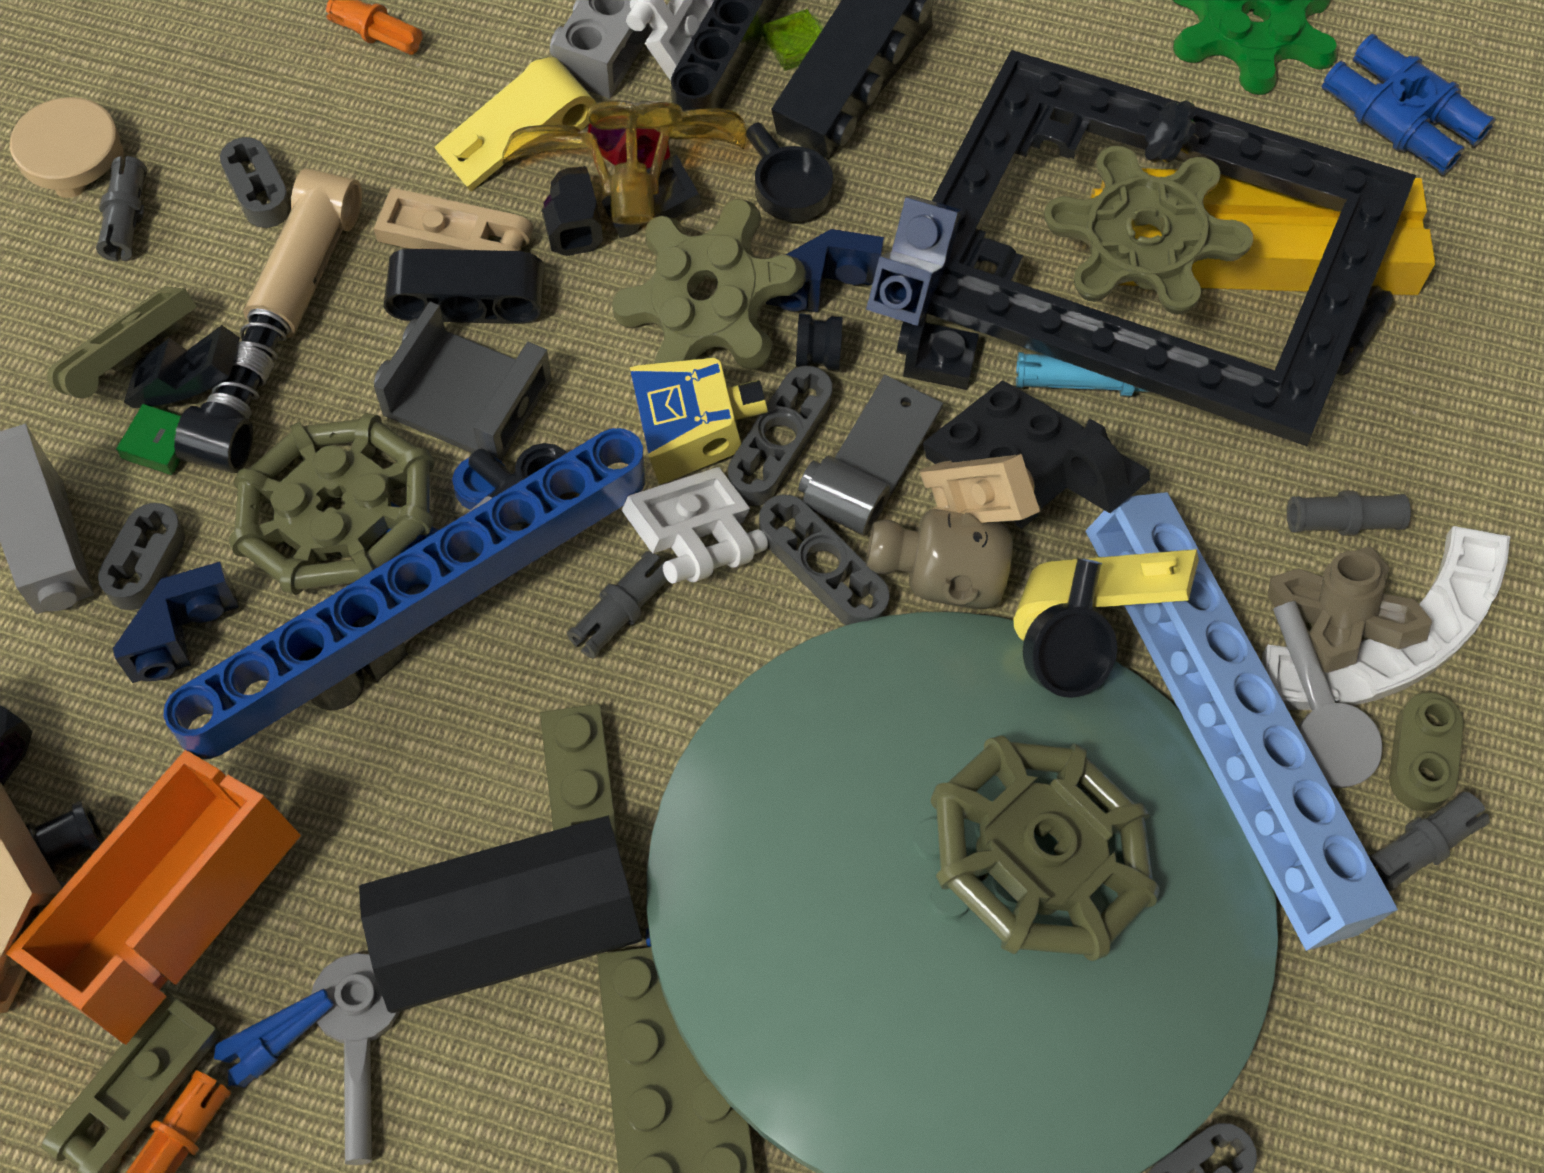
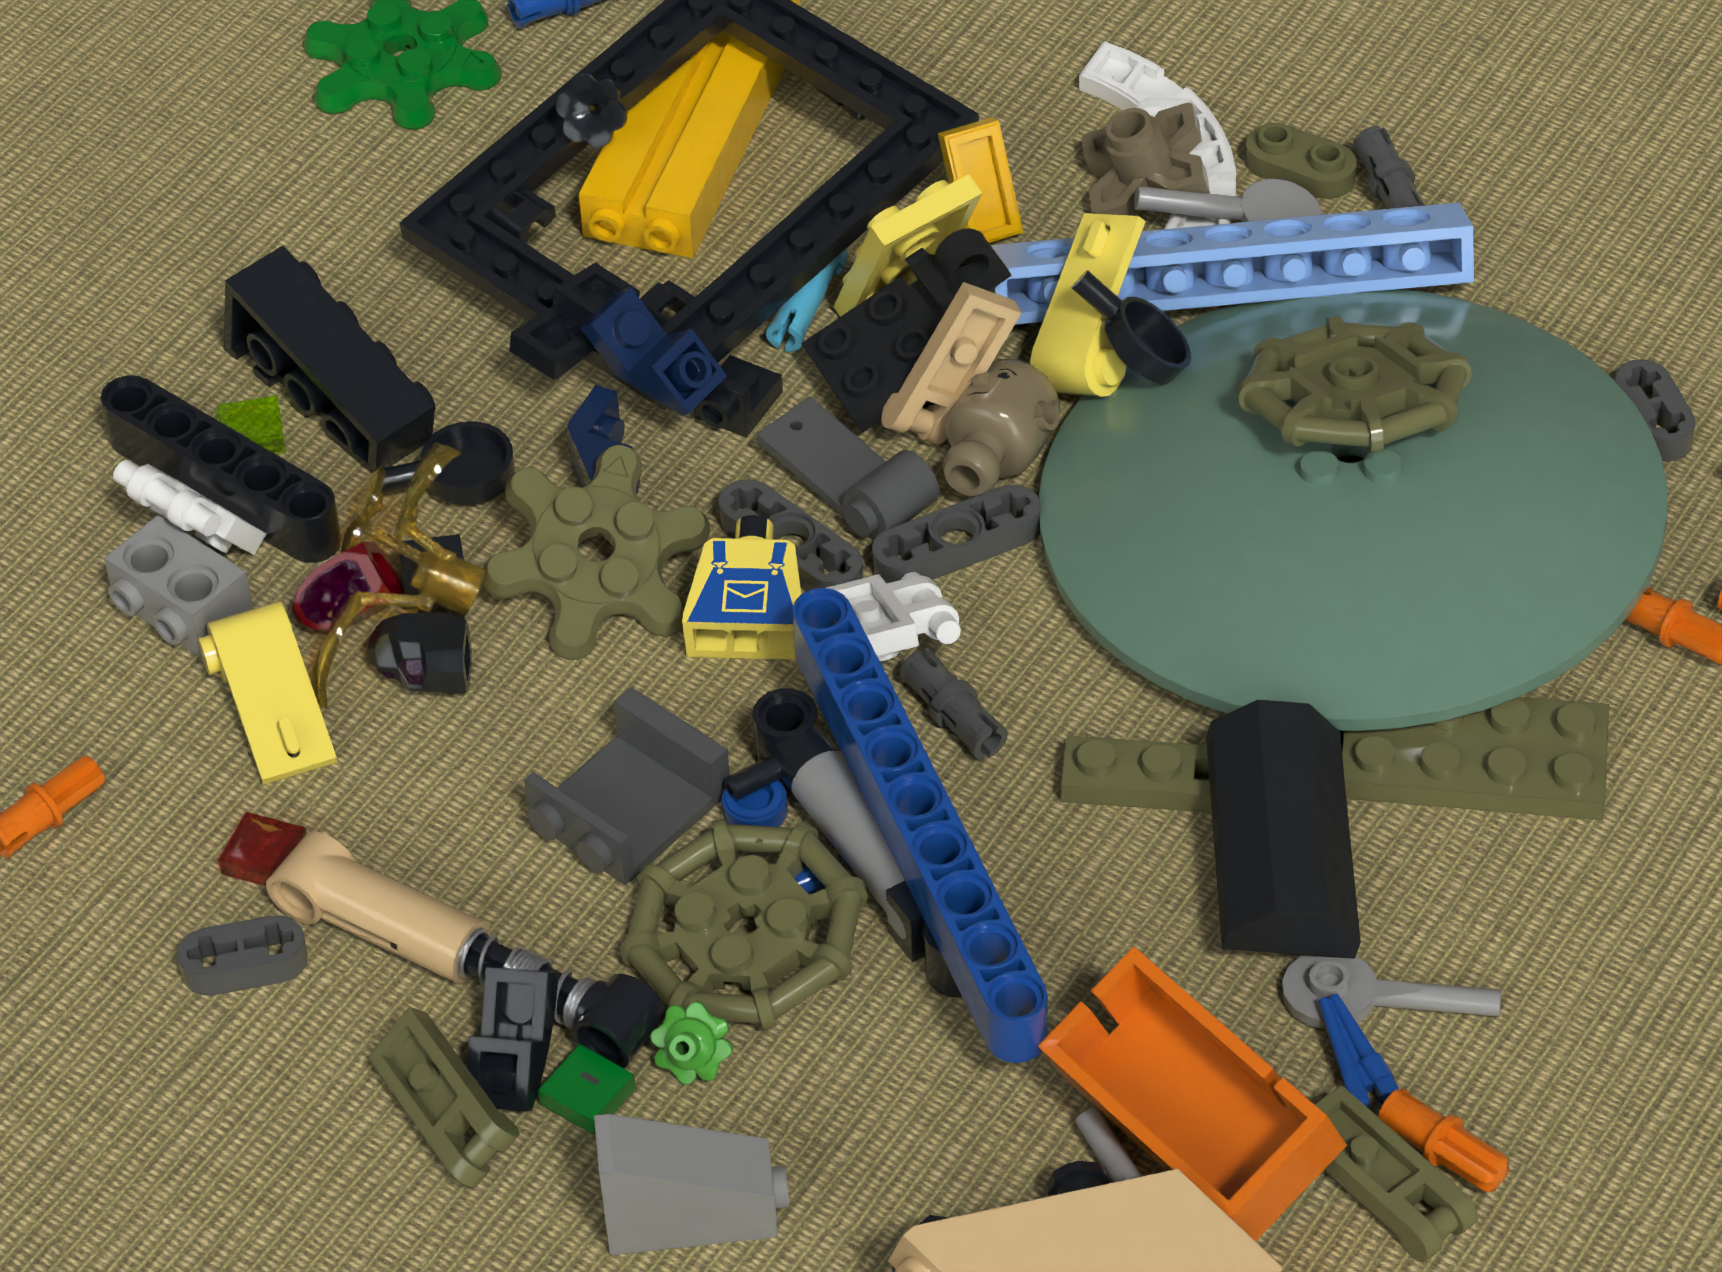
camera: 70 degrees left, 15 degrees down
(65, 144) = (100, 1137): tan tile -> none
(121, 208) = (227, 1090): dark grey pin -> none
(135, 553) = (748, 1110): dark grey beam -> none
(155, 639) = (857, 1090): dark blue slope -> none
(199, 496) = (691, 1042): none -> bright green plant
(364, 162) = (259, 847): none -> clear red tile
(439, 223) = (402, 772): tan plate -> none
(465, 285) = (489, 769): black beam -> none
(819, 342) = (693, 477): black wheel -> none
(955, 190) = (554, 338): none -> black slope
(1129, 423) = (899, 233): none -> light yellow plate
(1141, 199) = (713, 132): olive plate -> none
(1246, 466) = (981, 153): none -> yellow tile
(1348, 513) = (1041, 140): dark grey pin -> none

